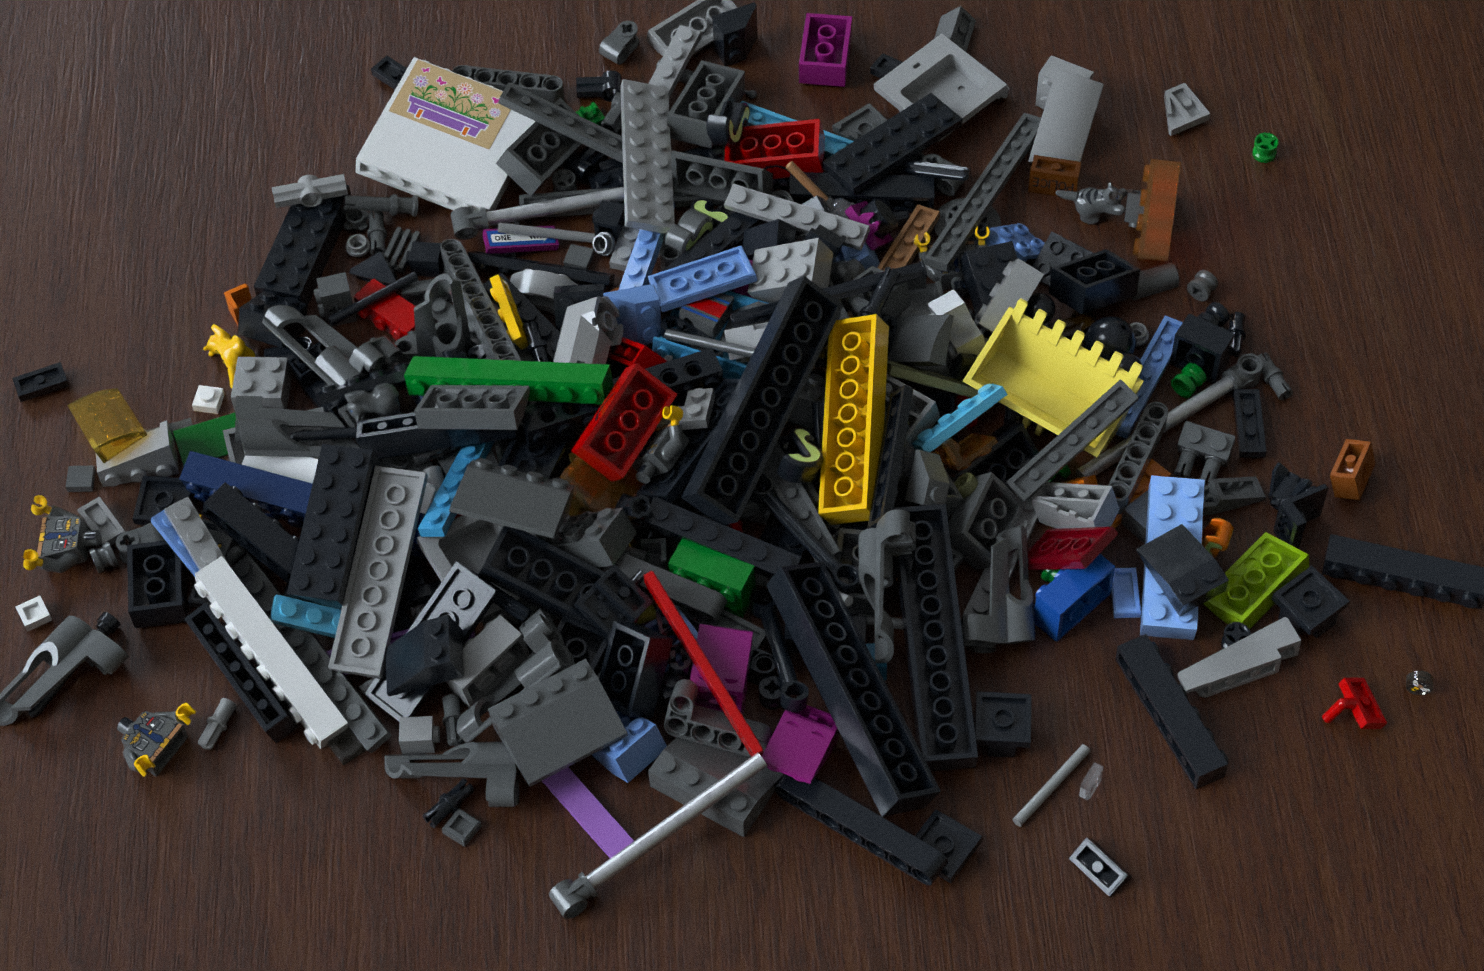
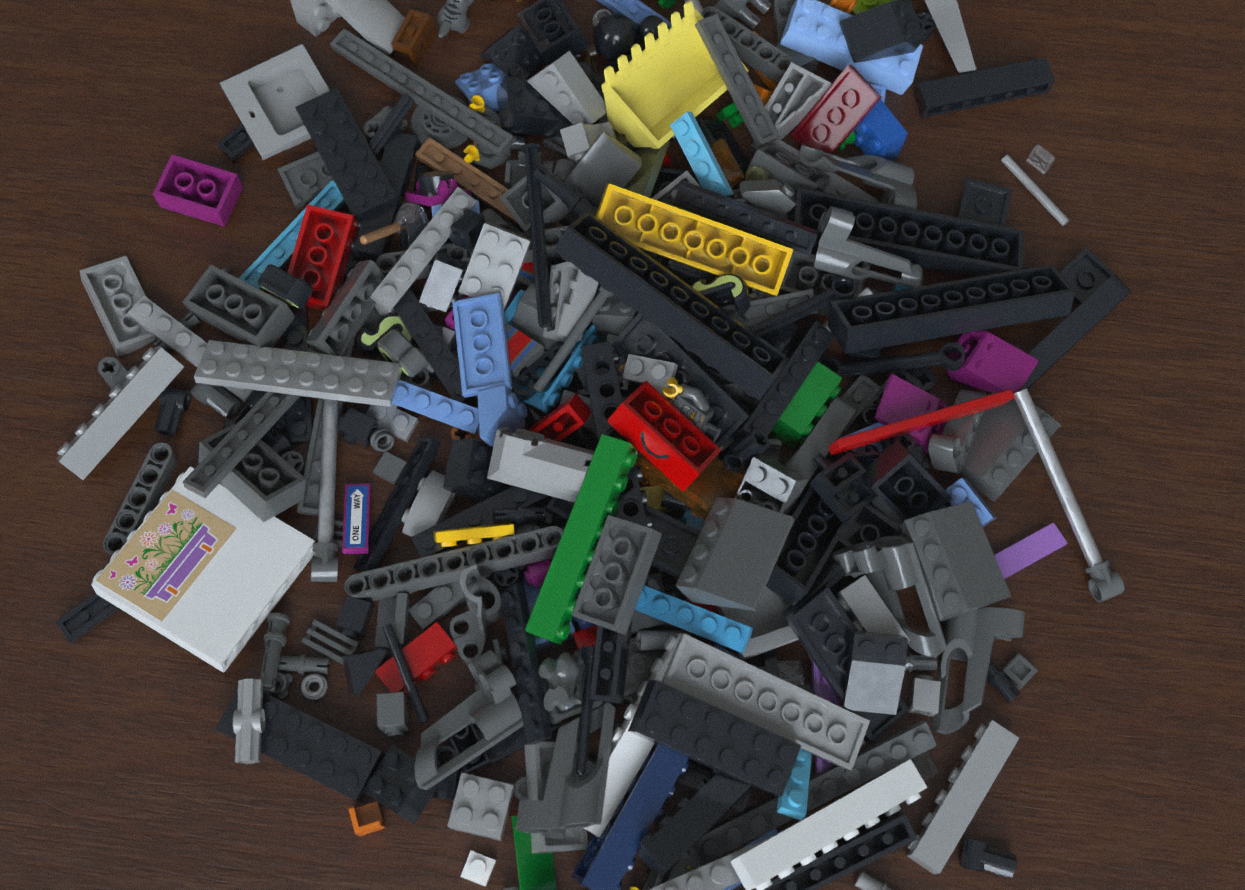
camera: 85 degrees left, 15 degrees up
(229, 349) = (430, 834): yellow animal -> none
(258, 805) = (981, 858): none -> black piece
(319, 783) = (962, 797): none -> light grey brick
(545, 232) = (356, 492): light grey bar -> none
(585, 46) = (119, 412): none -> light grey brick
(591, 113) = (207, 425): green tile -> none
(735, 33) = (153, 267): black slope -> none
(957, 26) = (204, 80): dark grey panel -> none
(1100, 866) = (1111, 173): black slope -> none

